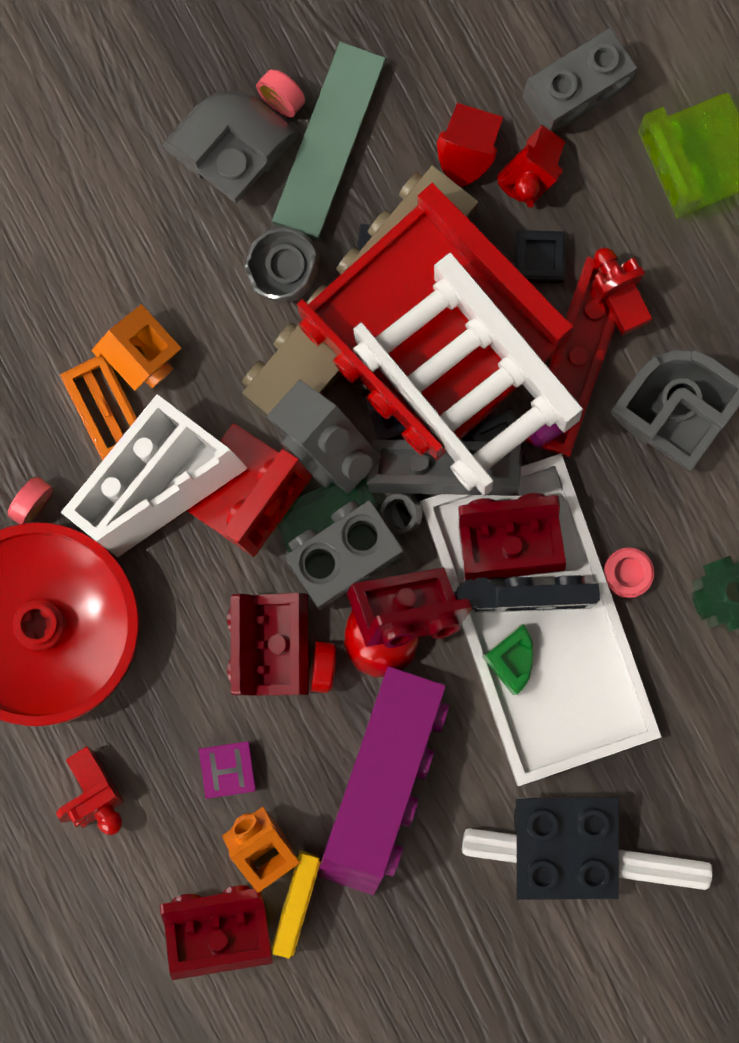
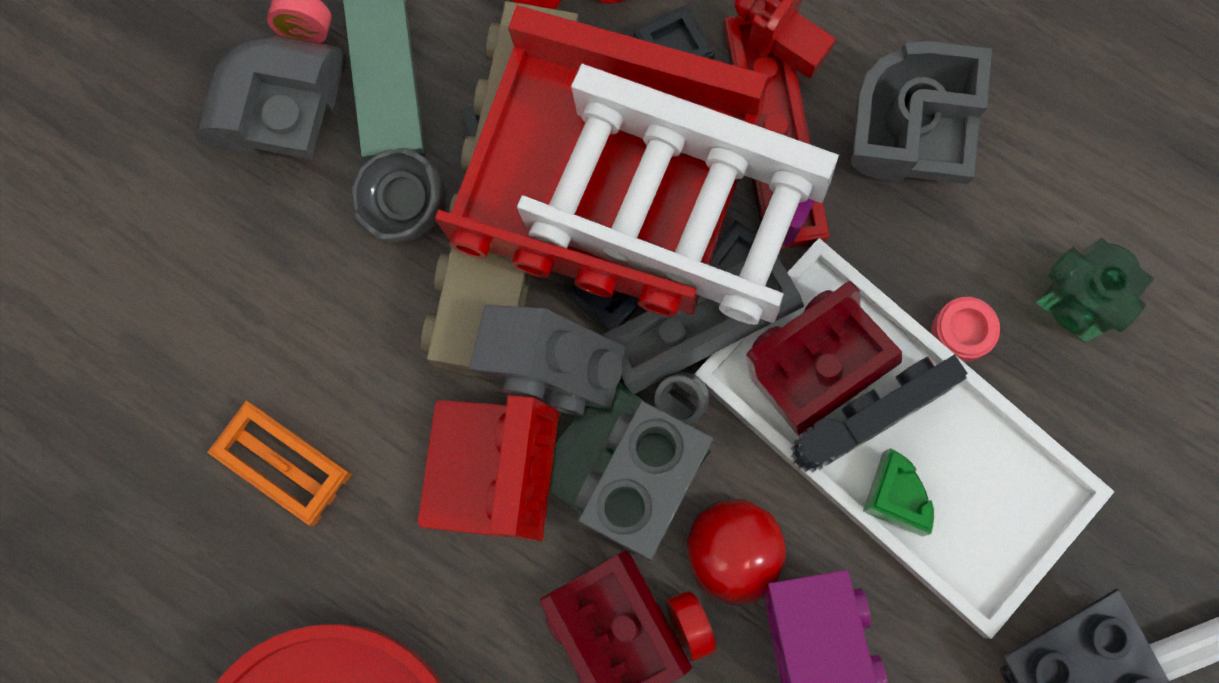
camera: 25 degrees left, 5 degrees down
(30, 500) = (244, 618): coral tile -> none
(138, 349) = (282, 374): orange brick -> none
(151, 478) = (371, 516): white wedge -> none
(407, 607) = (753, 502): dark red bracket -> none

